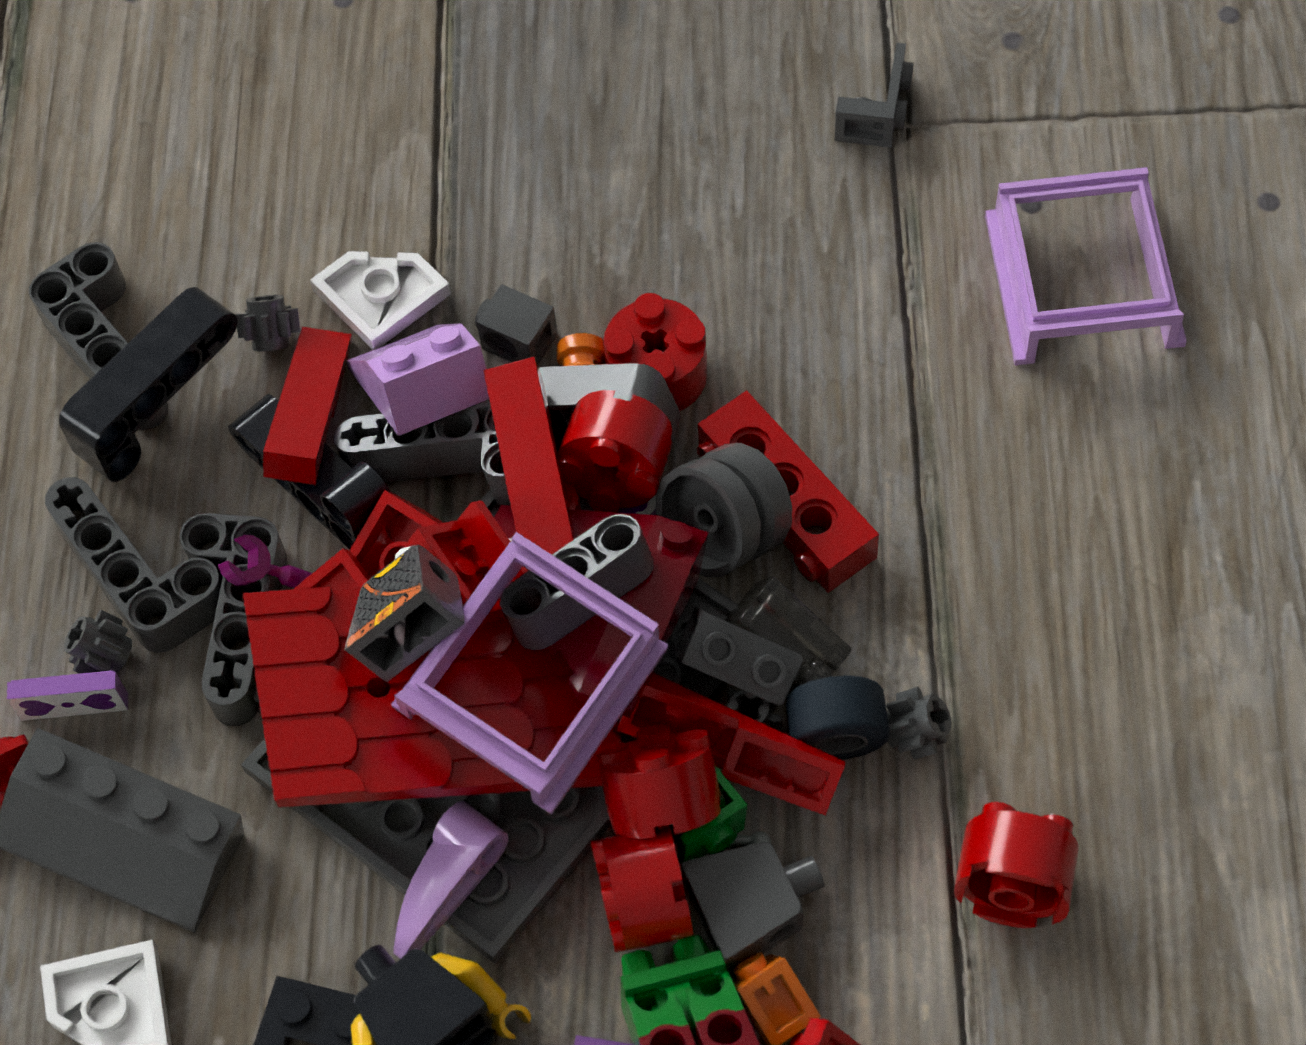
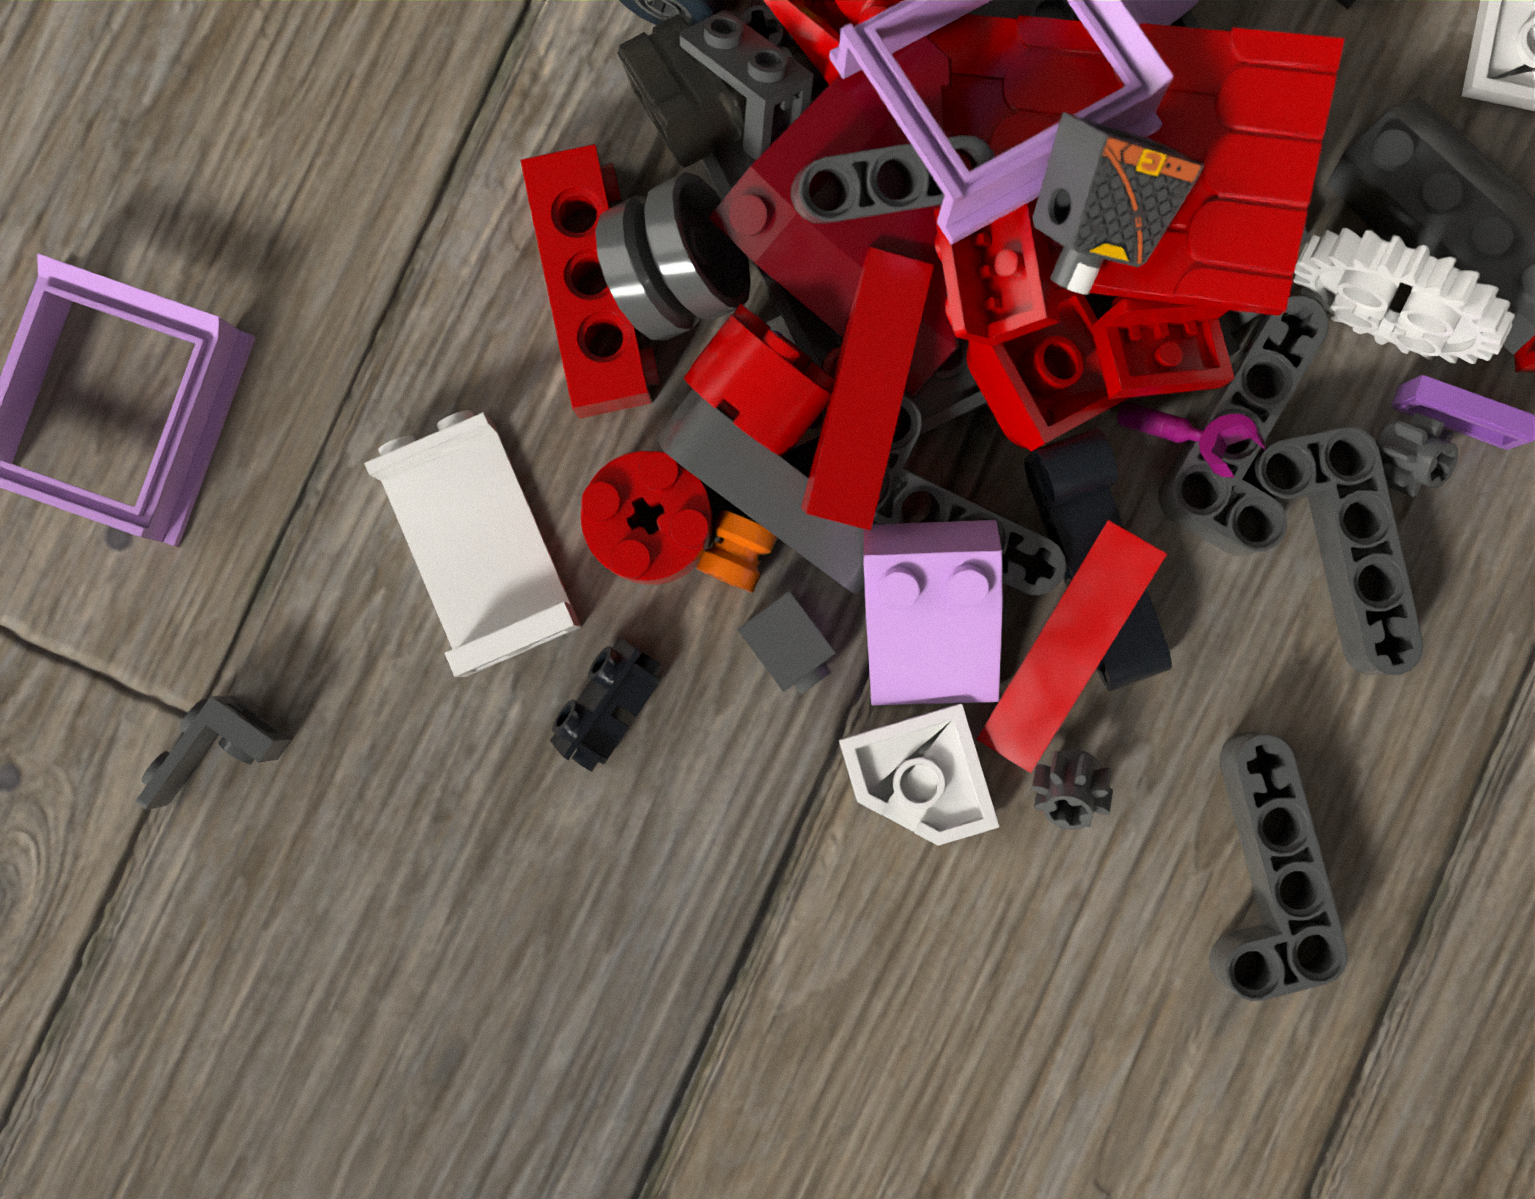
camera: 155 degrees left, 25 degrees up
(118, 705) = (1442, 315): none -> white gear
(141, 379) = (1298, 733): black beam -> none
(630, 224) = (613, 682): none -> black hinge
(769, 297) = (474, 541): none -> white panel

